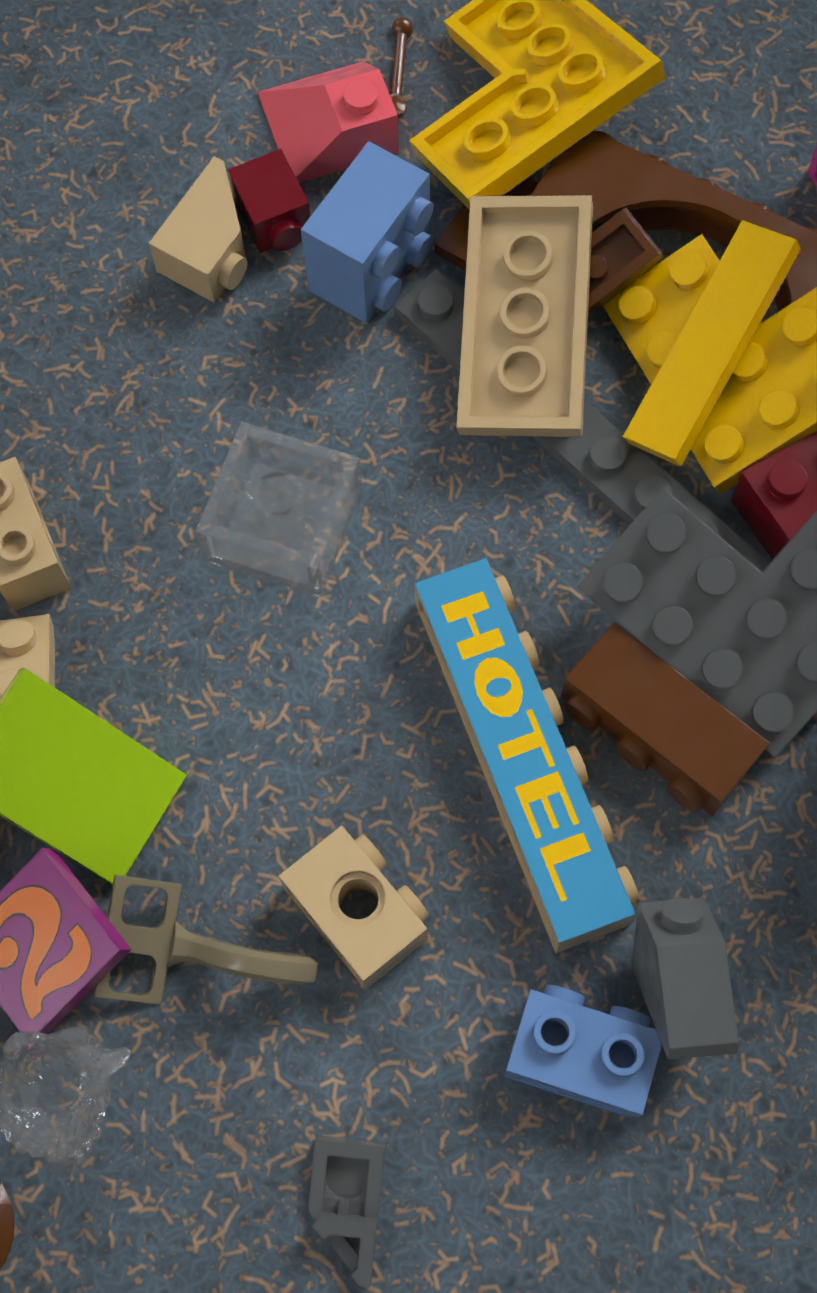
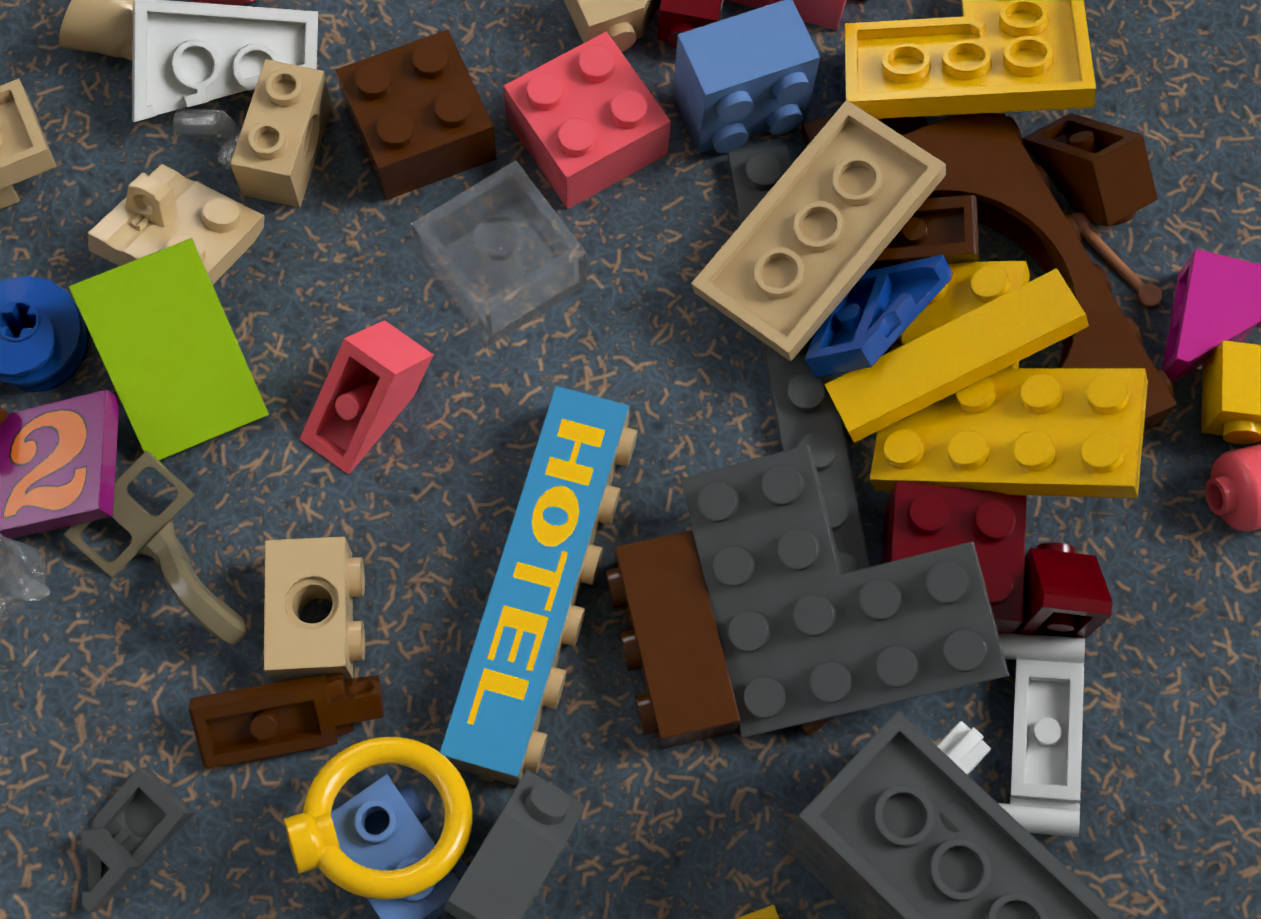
camera: 30 degrees right, 0 degrees up
(116, 442) = (417, 114): none -> reddish brown brick
(257, 702) = (364, 393): none -> coral slope
(261, 353) = (587, 119): none -> coral brick
(400, 1010) = (281, 717): none -> reddish brown hinge
(525, 1083) = (314, 835): none -> yellow piece
(621, 354) = (875, 315): none -> blue wing
(690, 127) = (1096, 167): none -> reddish brown slope
(799, 203) = (1147, 294): none -> nougat hinge

